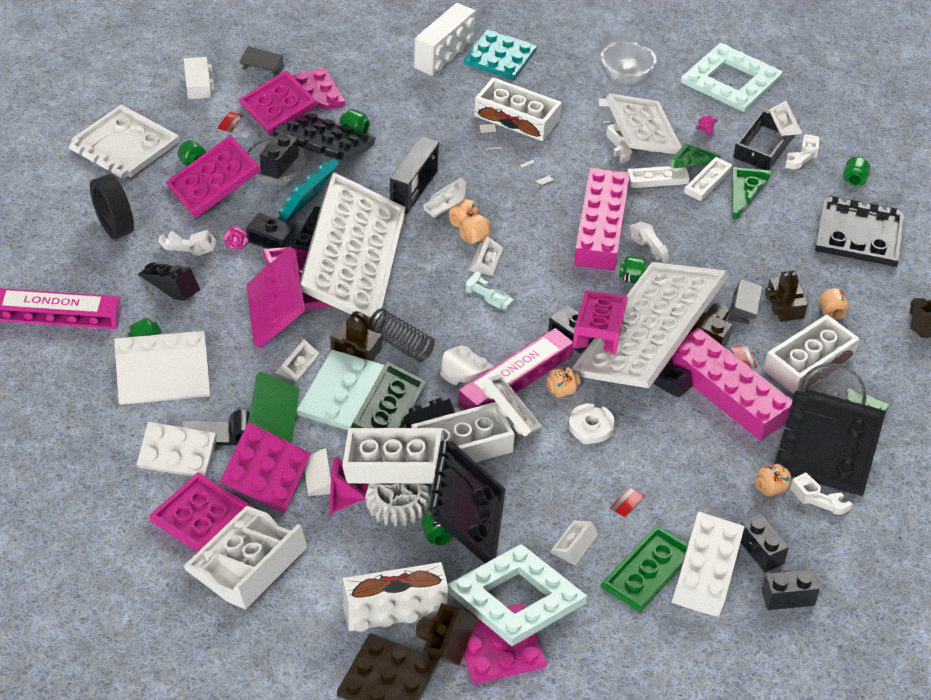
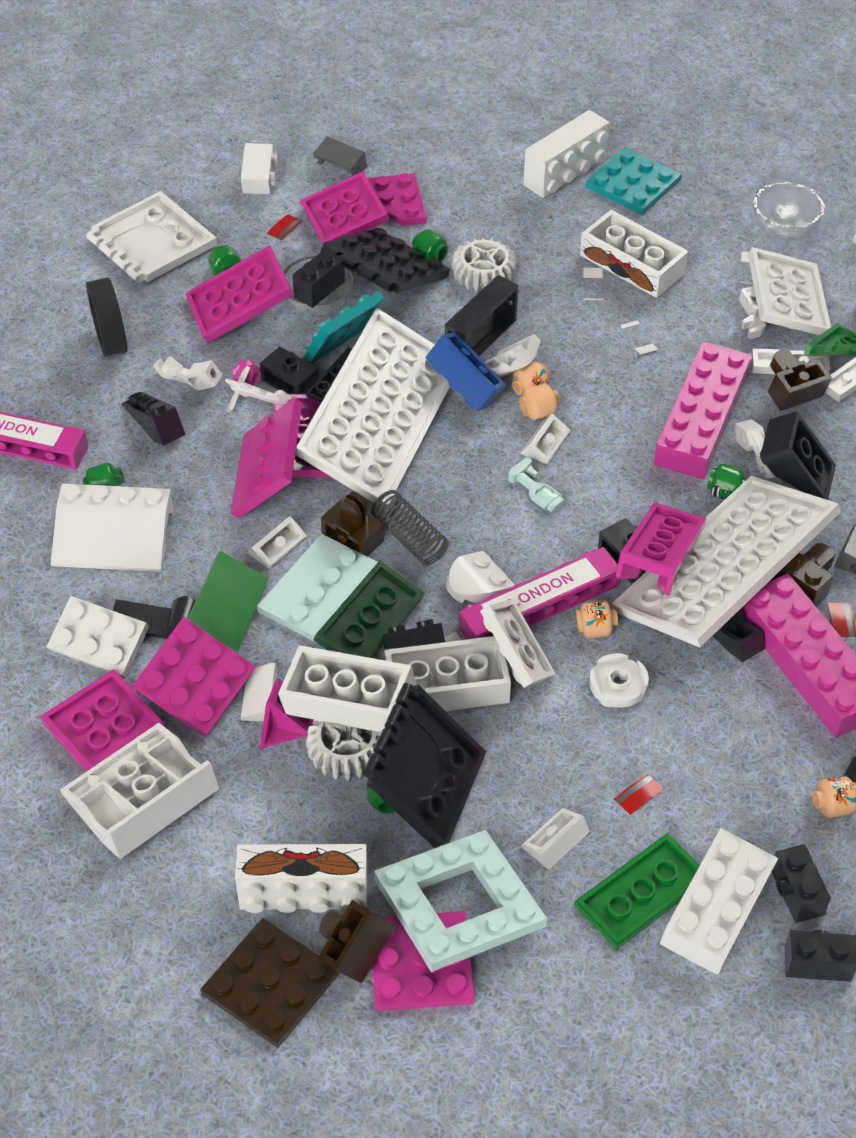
camera: 15 degrees right, 5 degrees up
(243, 247) = (245, 389): none -> white piece
(400, 130) = (481, 261): none -> white gear
(413, 213) = (465, 371): none -> blue brick
(667, 189) = (796, 381): none -> dark brown brick
(682, 241) = (797, 455): none -> black slope

